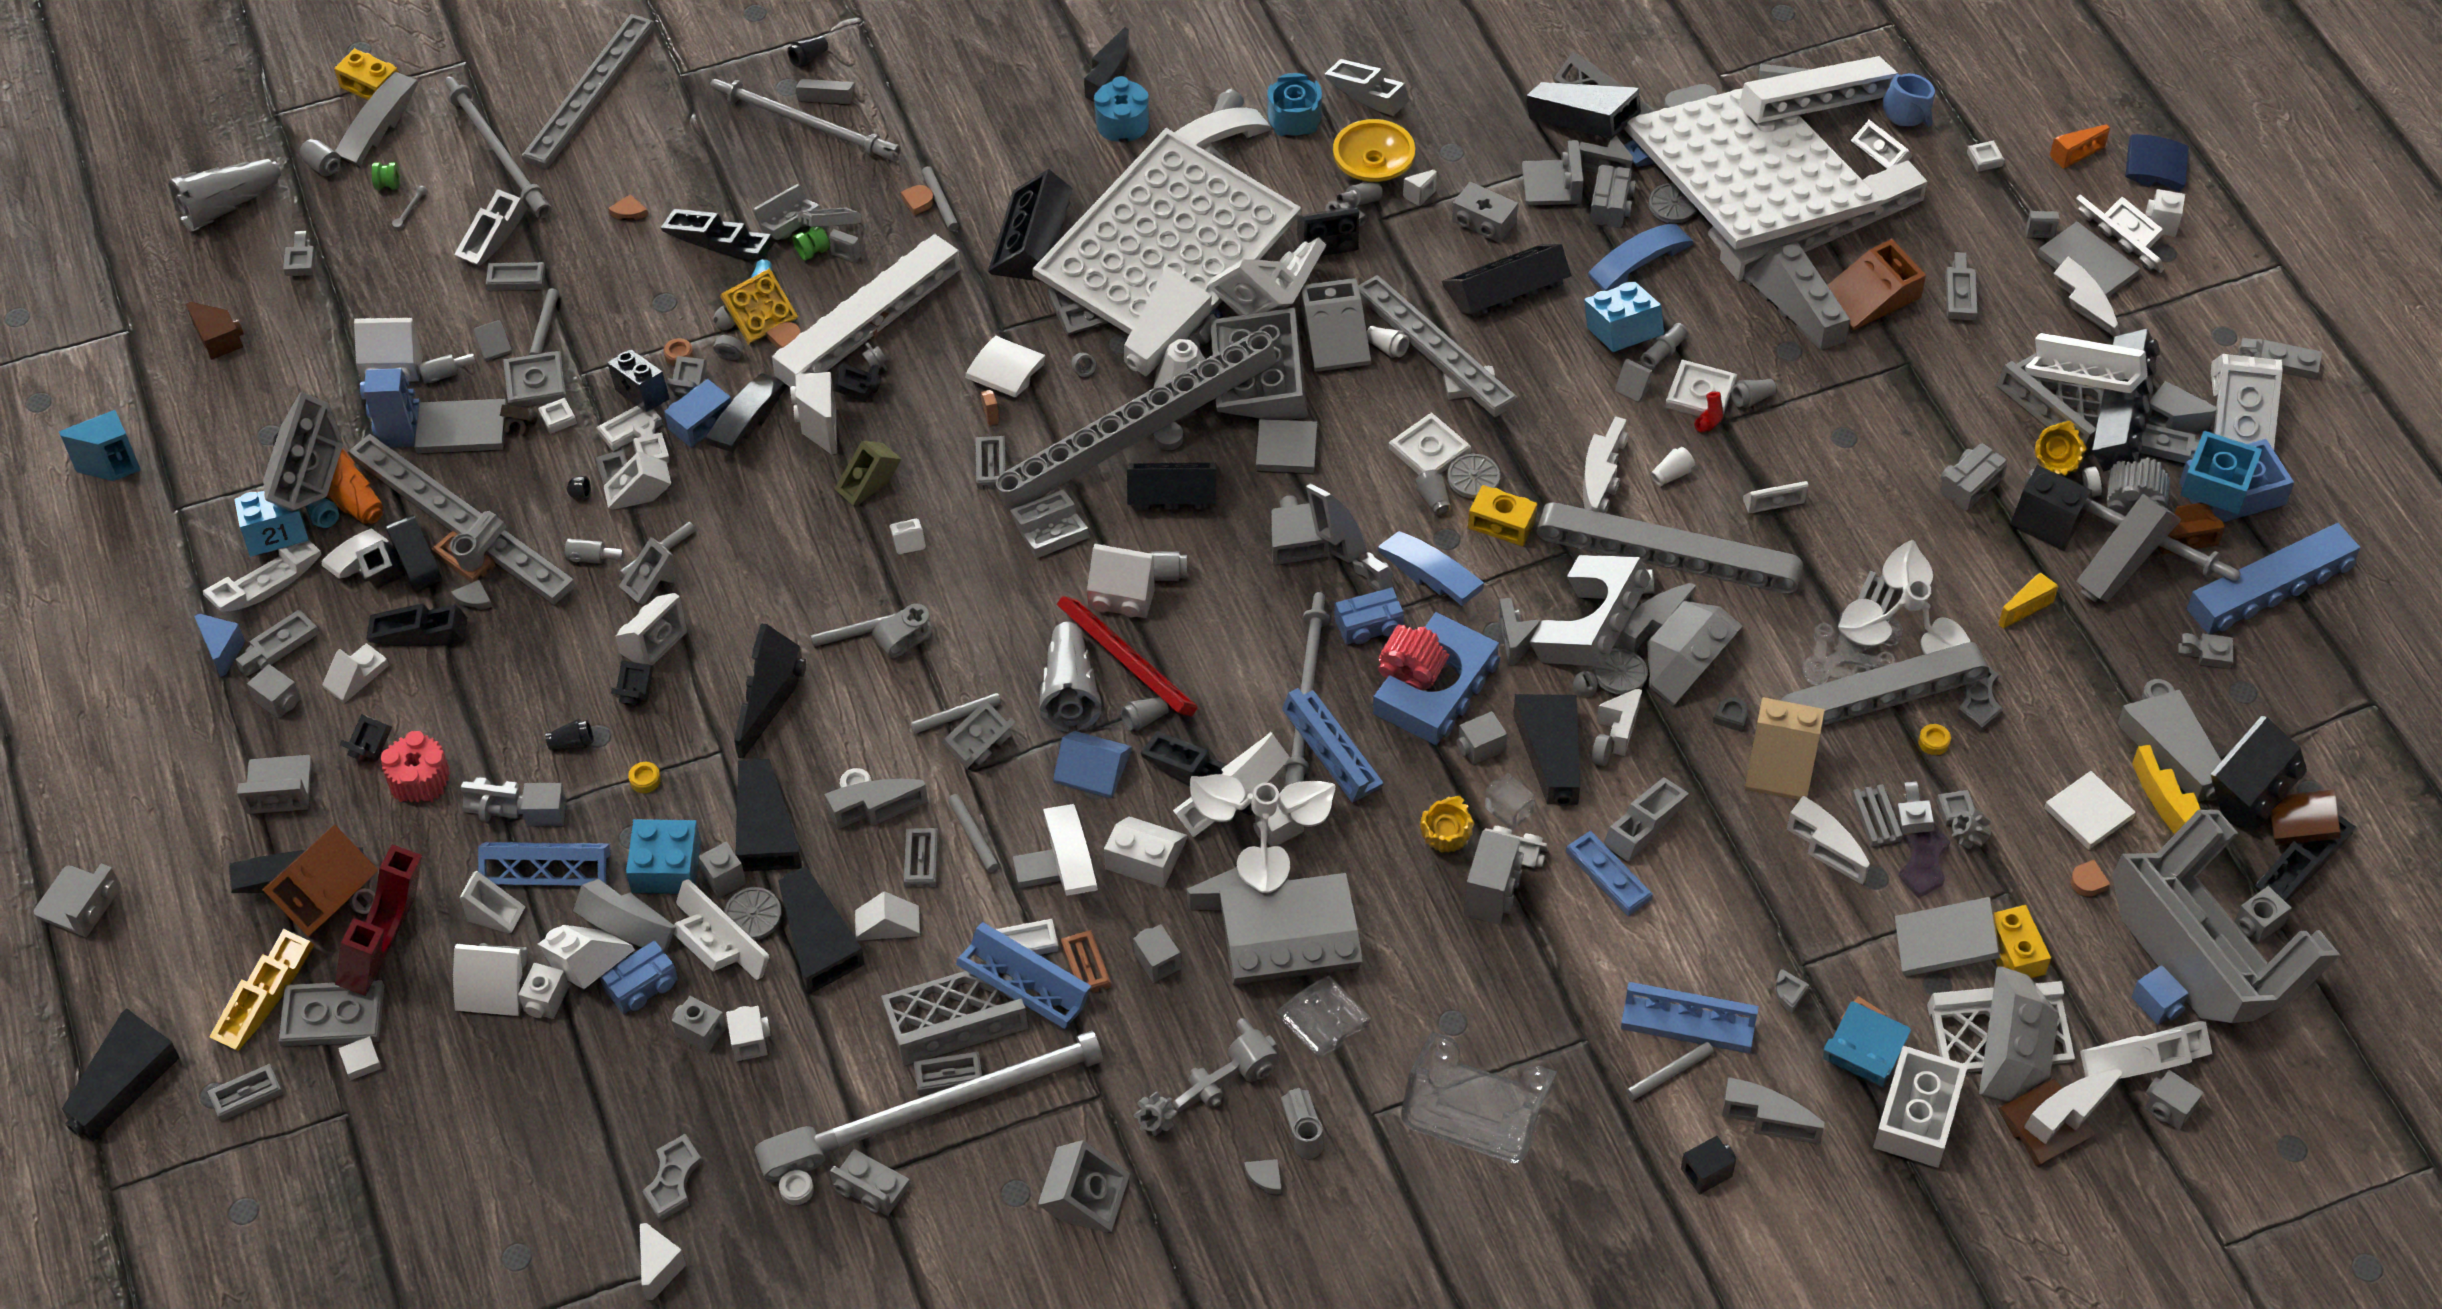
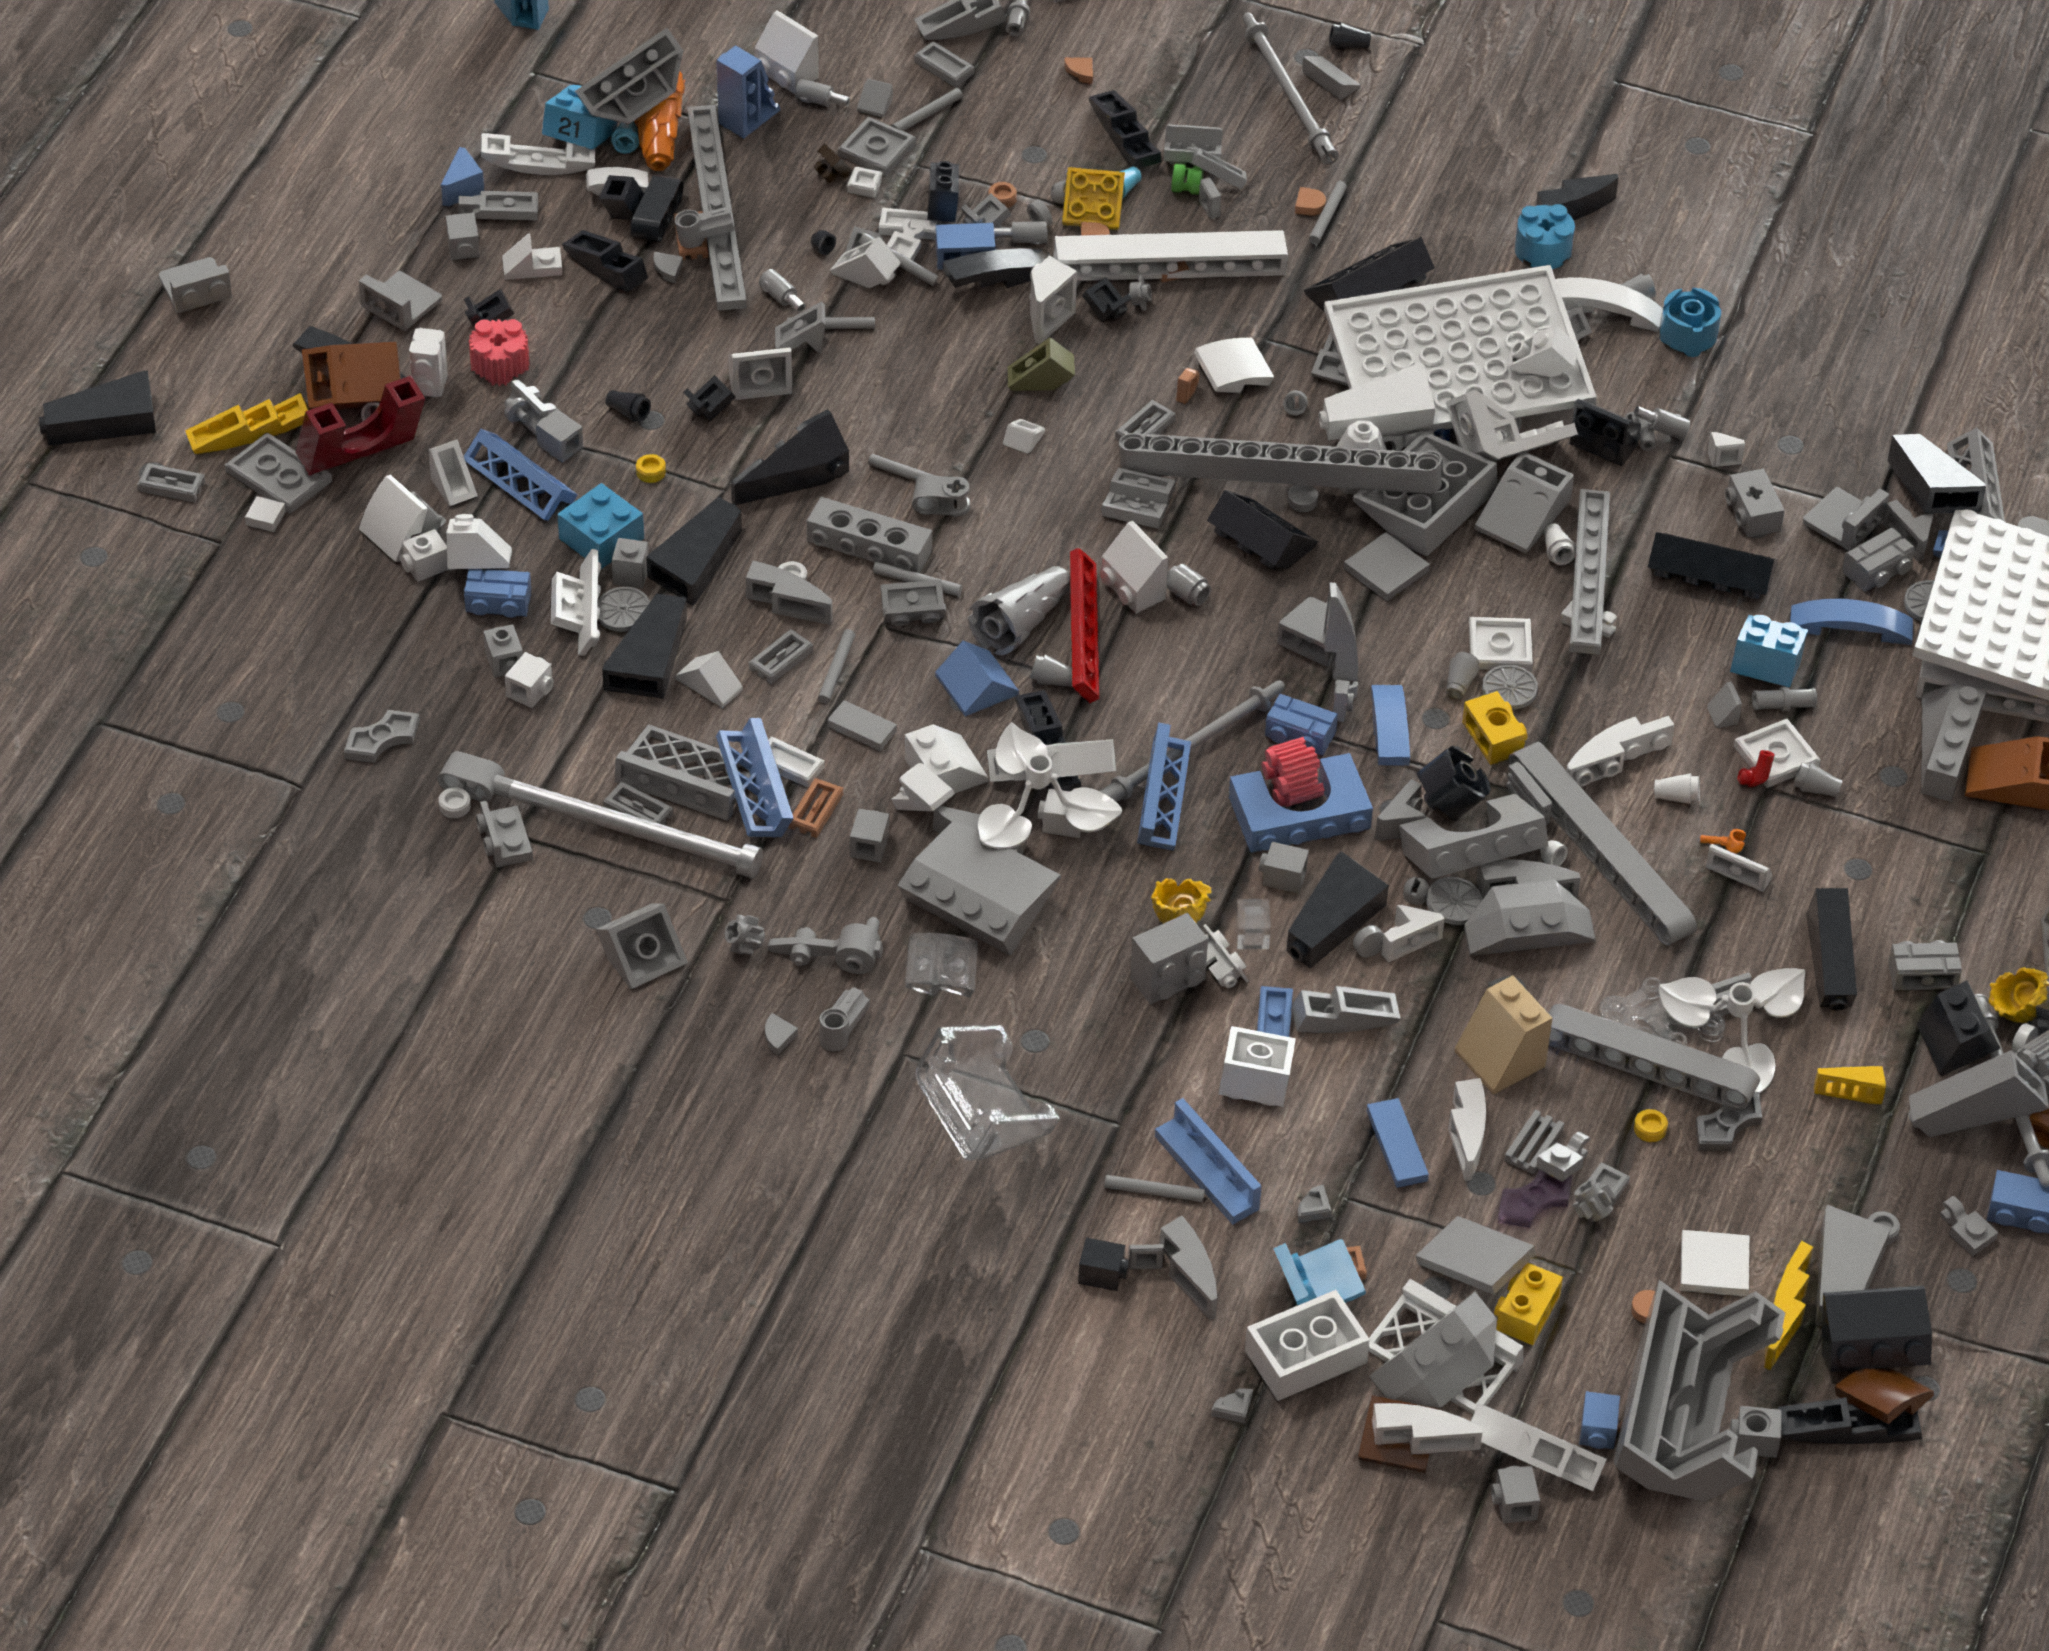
camera: 40 degrees right, 5 degrees down
(370, 821) = (429, 361): none -> white brick
(460, 426) = (785, 143): light grey tile -> none
(622, 915) = (529, 543): light grey slope -> none
(659, 1261) = (307, 778): white slope -> none
(671, 459) = (908, 264): none -> light grey bar
(734, 368) = (1024, 232): none -> light grey piece
(869, 703) = (869, 535): none -> light grey brick
(1070, 850) = (883, 719): white slope -> none
(1164, 886) = (921, 790): none -> white slope
(1238, 199) = (1544, 353): none -> white slope
(1368, 86) = (1775, 348): light grey slope -> none
(1374, 150) = (1713, 395): yellow dish -> none
(1532, 579) = (1453, 783): none -> black brick
(1571, 545) = (1527, 789): none -> light grey tile
(1642, 912) = (1257, 1066): none -> white slope
(1727, 1128) = (1146, 1256): none -> light grey slope
(1747, 482) = (1733, 843): none -> orange hand
(1790, 892) = (1397, 1142): none -> medium blue tile
(1908, 509) = (1832, 947): none -> black slope
(1914, 1198) = (1233, 1406): none -> light grey tile

